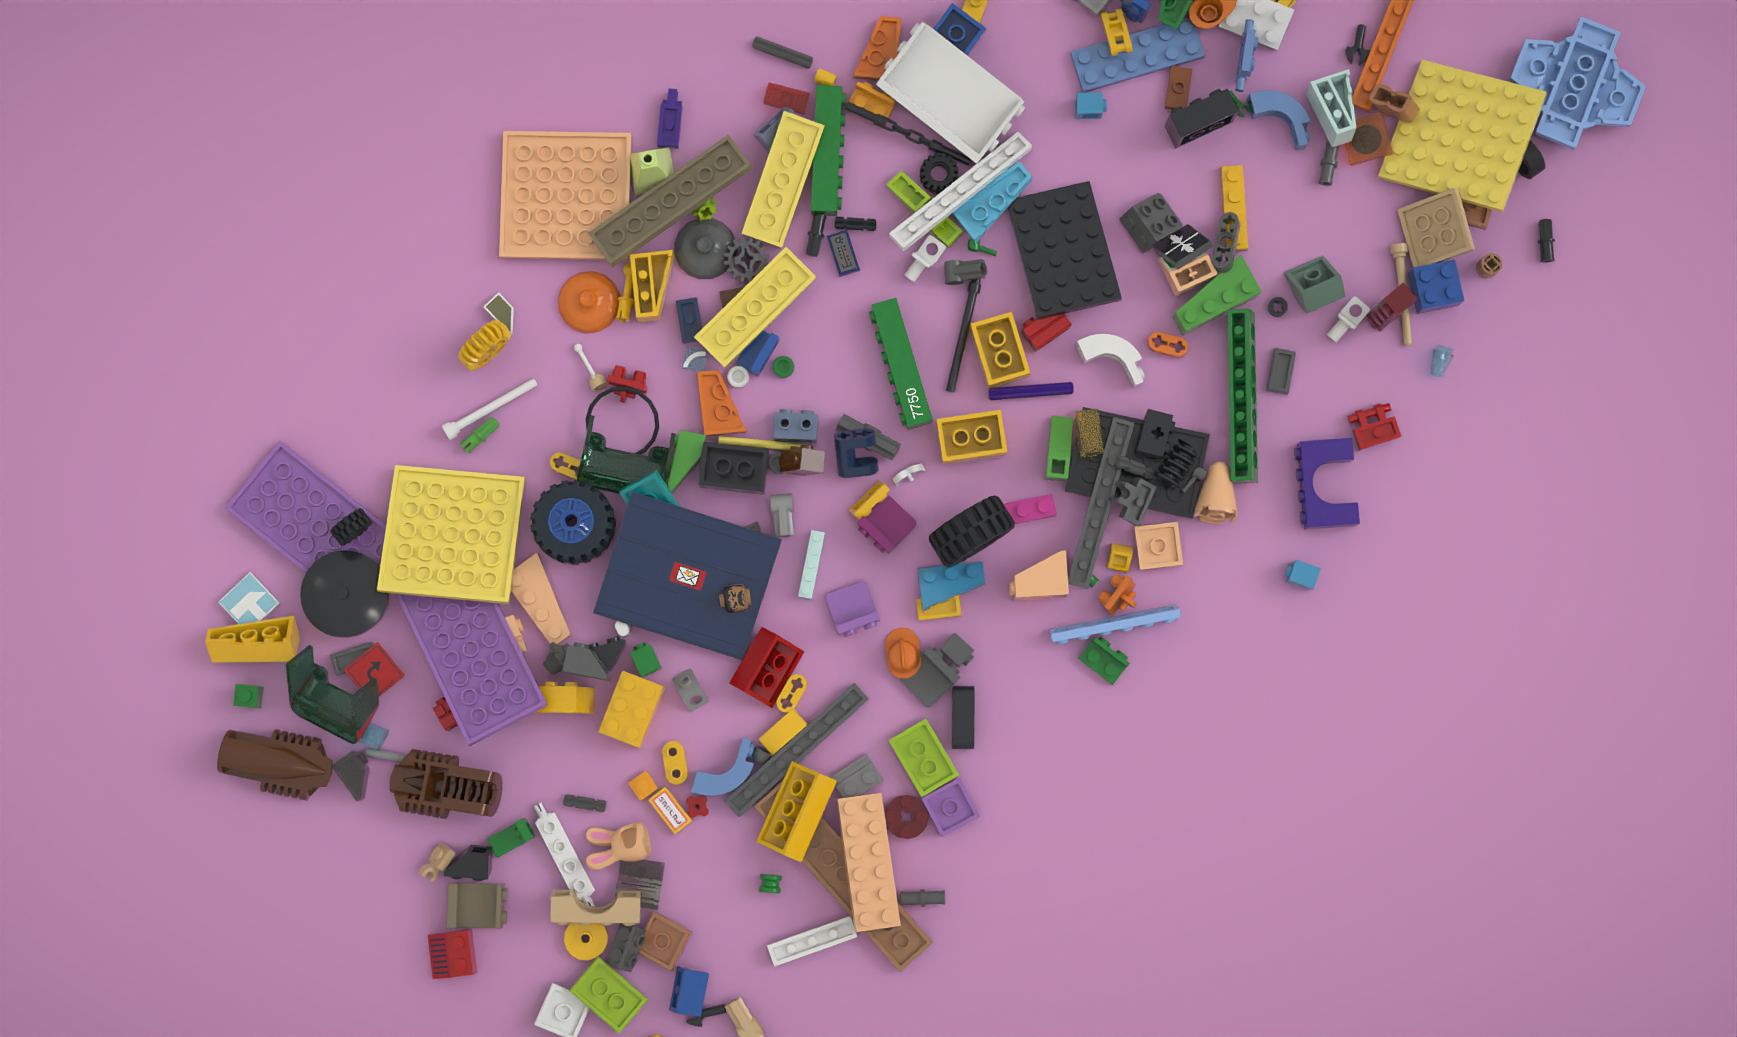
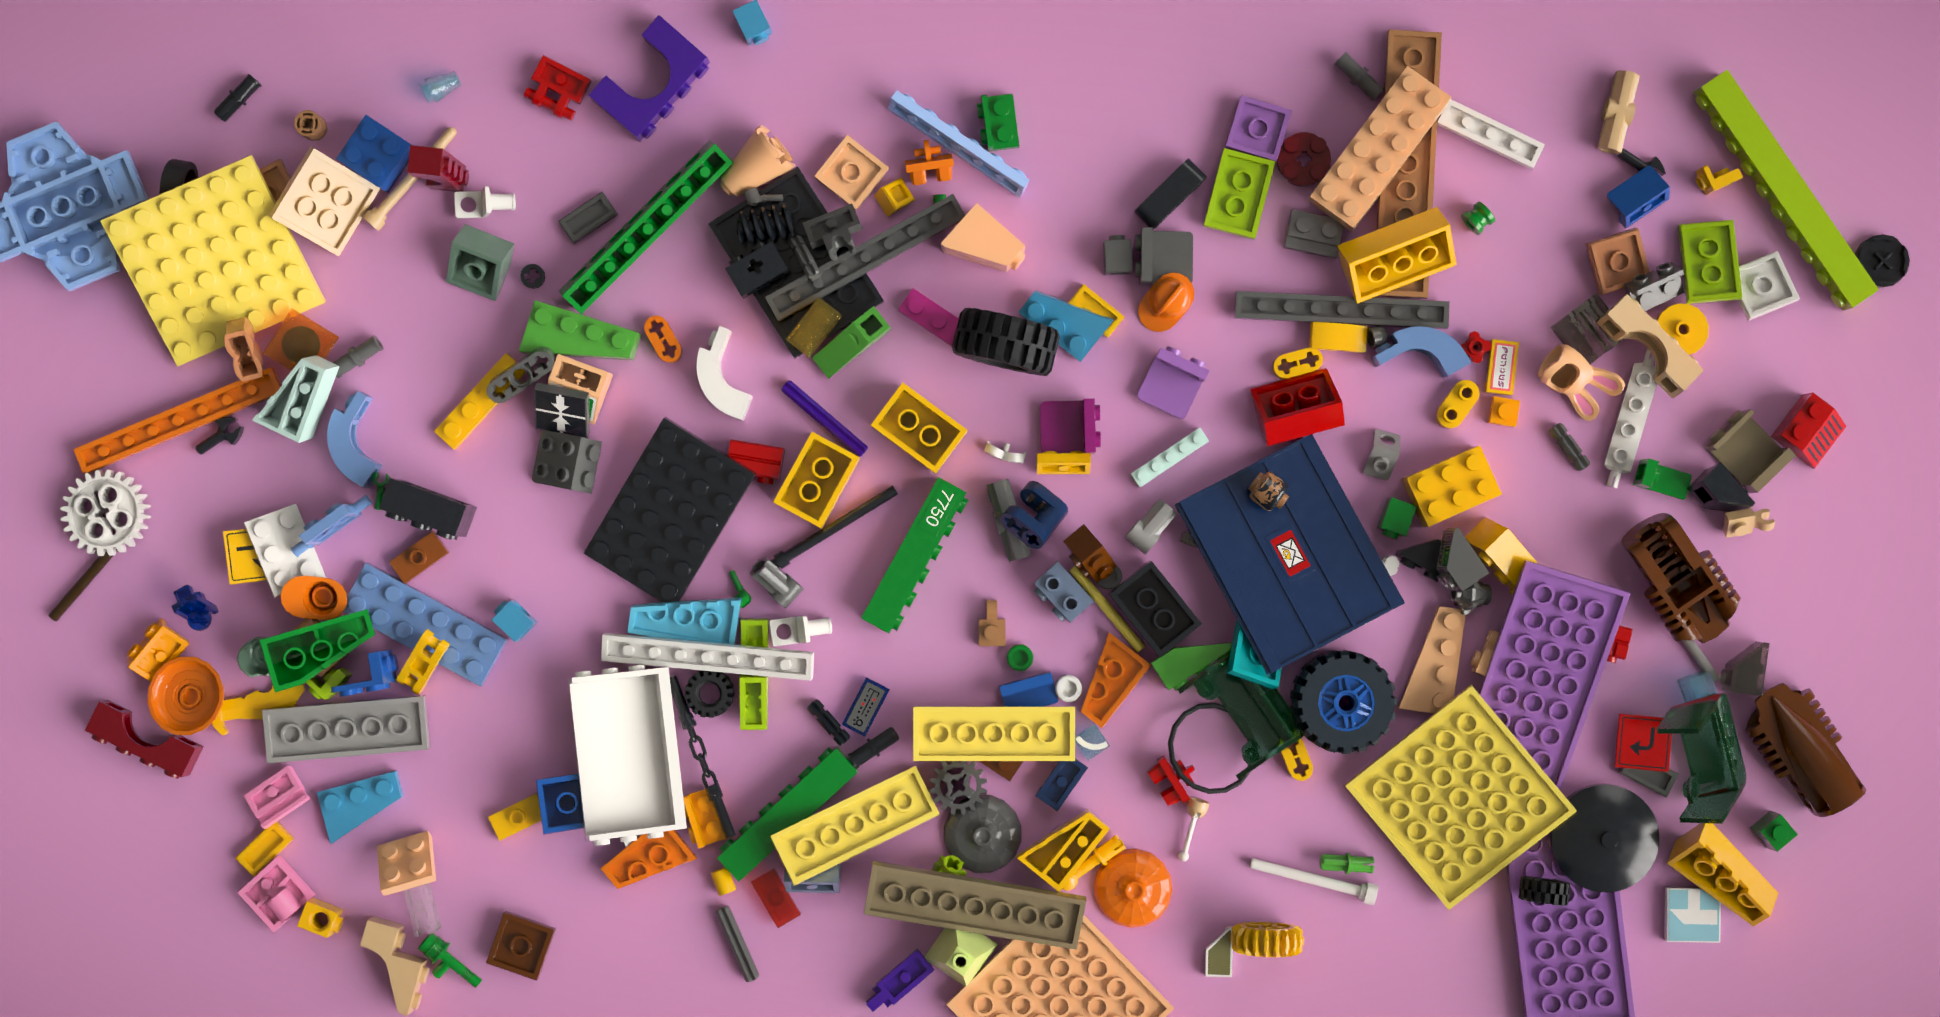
camera: 140 degrees left, 5 degrees up
(816, 367) = (992, 630): none -> medium nougat plate

